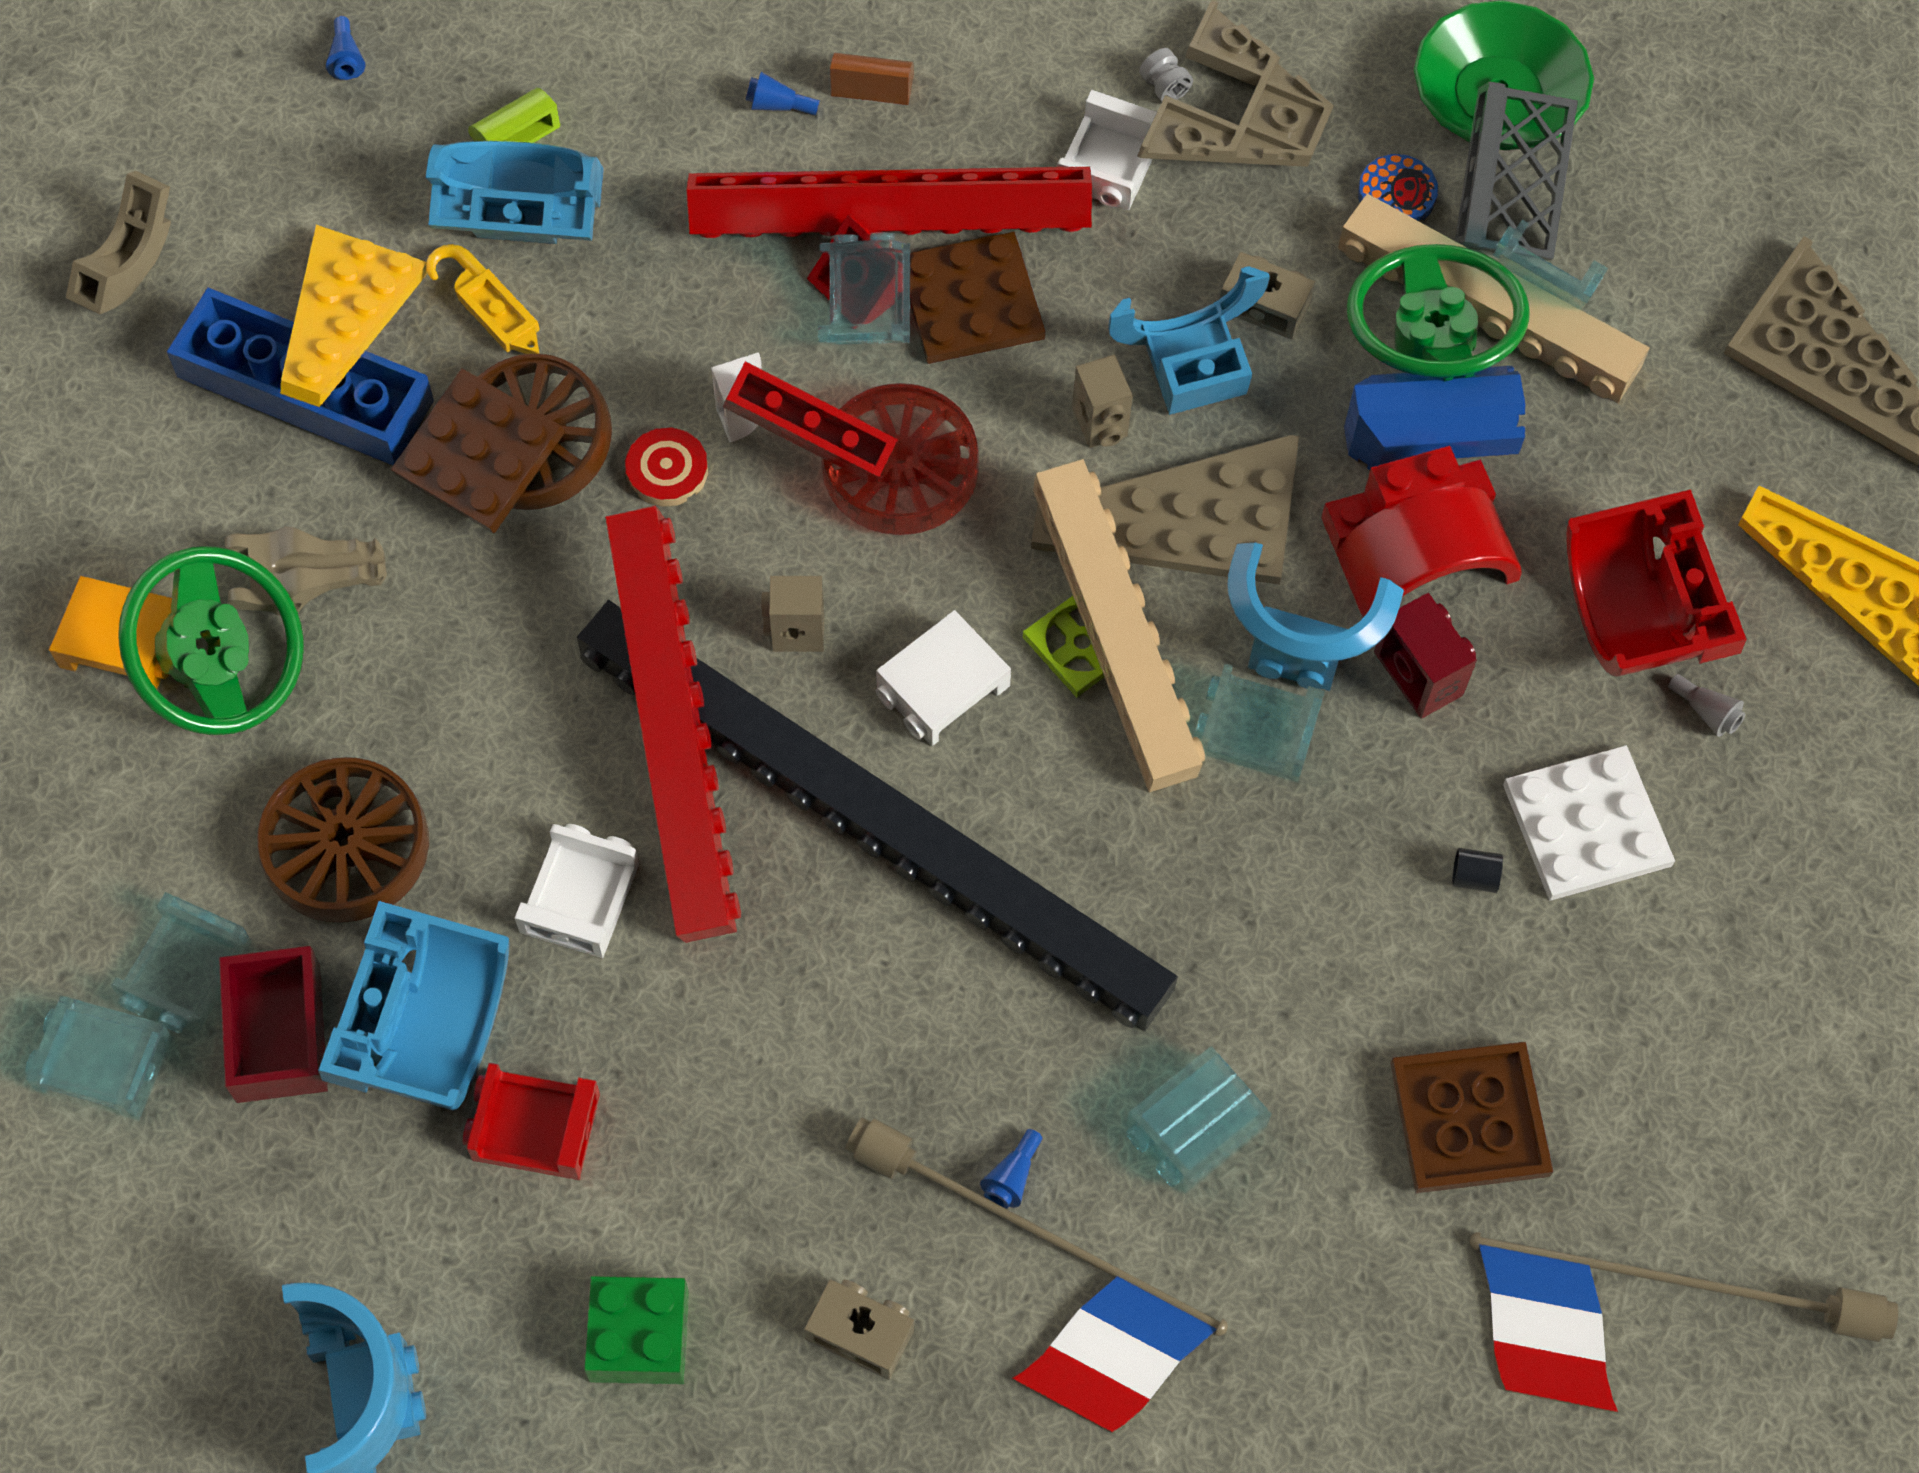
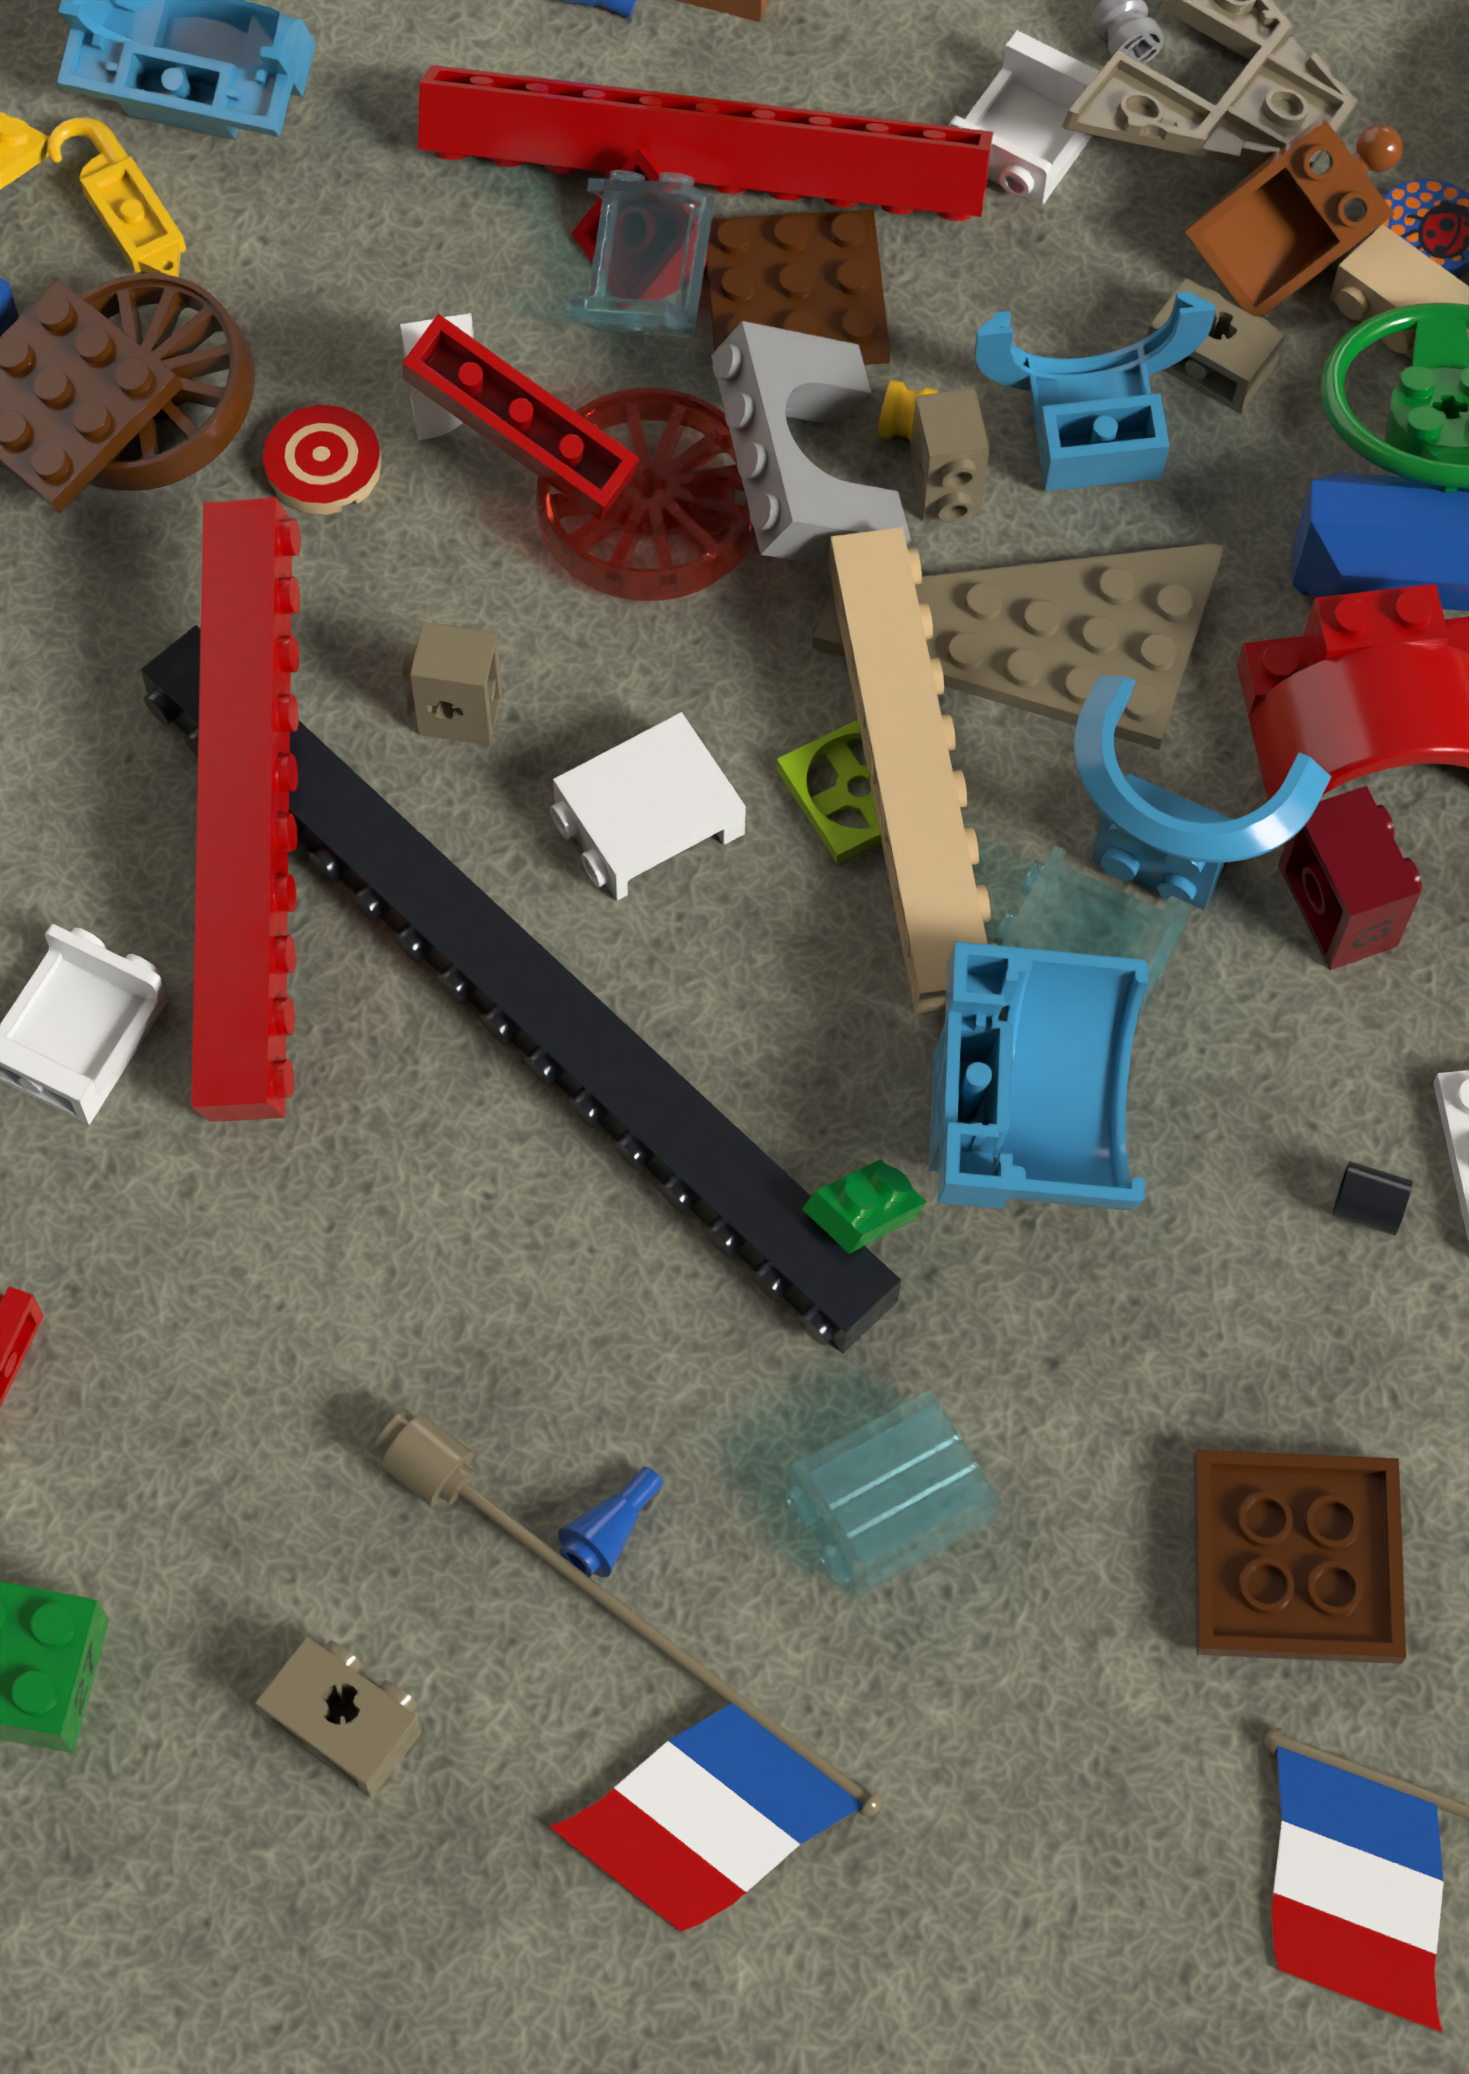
camera: 10 degrees right, 0 degrees up
(1003, 452) = (791, 501): none -> light grey arch
(1063, 373) = (898, 410): none -> yellow wheel
(1143, 929) = (865, 1205): none -> green plate
(1241, 826) = (1041, 1096): none -> dark azure piece
(1303, 202) = (1291, 222): none -> dark orange slope

